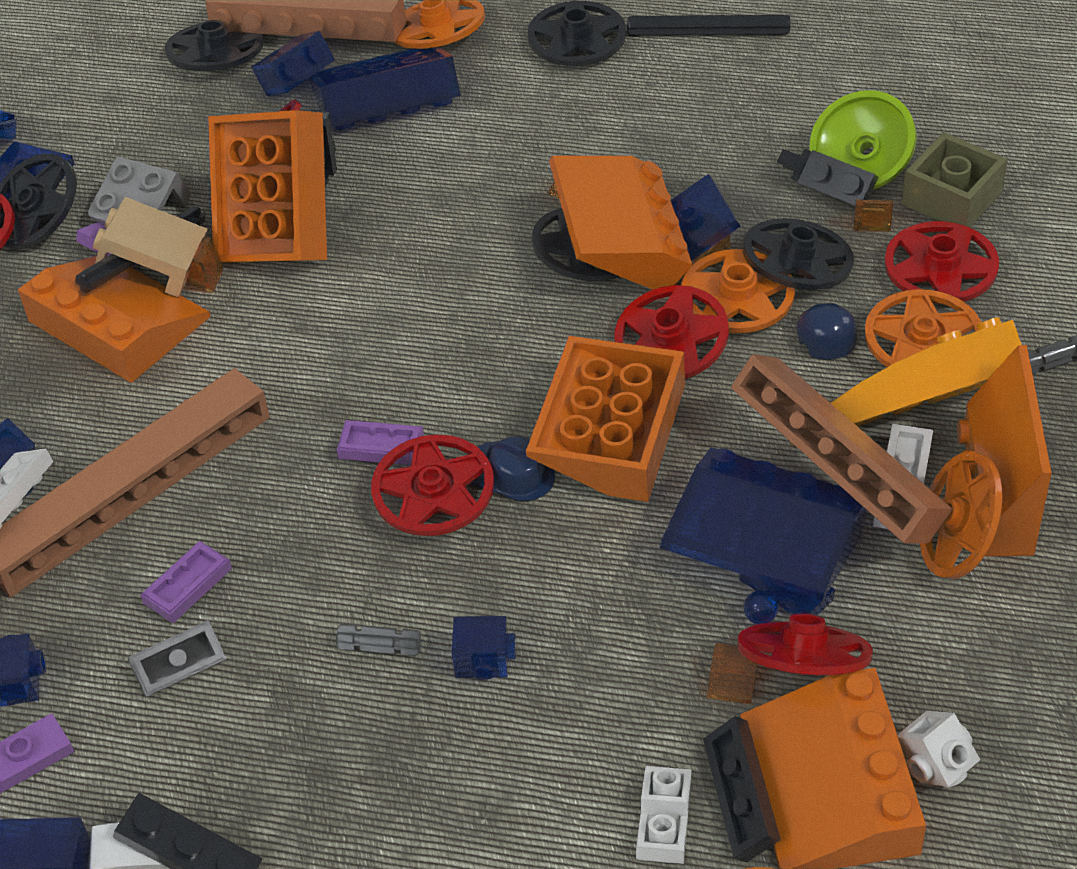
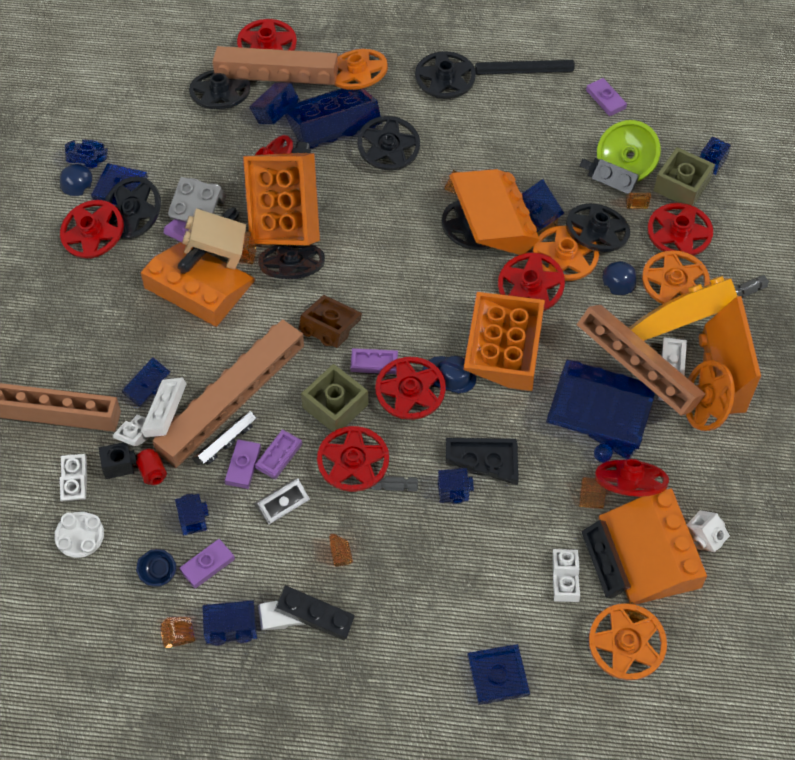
camera: 10 degrees left, 10 degrees up
(98, 552) = (224, 439): none -> plate
(121, 595) = (243, 464): none -> medium lavender plate
(258, 745) = (340, 550): none -> clear orange slope
(269, 285) = (291, 261): none -> black wheel
(297, 495) = (334, 398): none -> olive brick
(310, 593) = (353, 458): none -> red wheel
(314, 377) = (329, 321): none -> reddish brown plate
(465, 122) = (388, 143): none -> black wheel
(546, 602) = (485, 456): none -> black wing
(838, 69) = (606, 97): none -> medium lavender plate
(1018, 146) = (716, 152): none -> clear blue brick

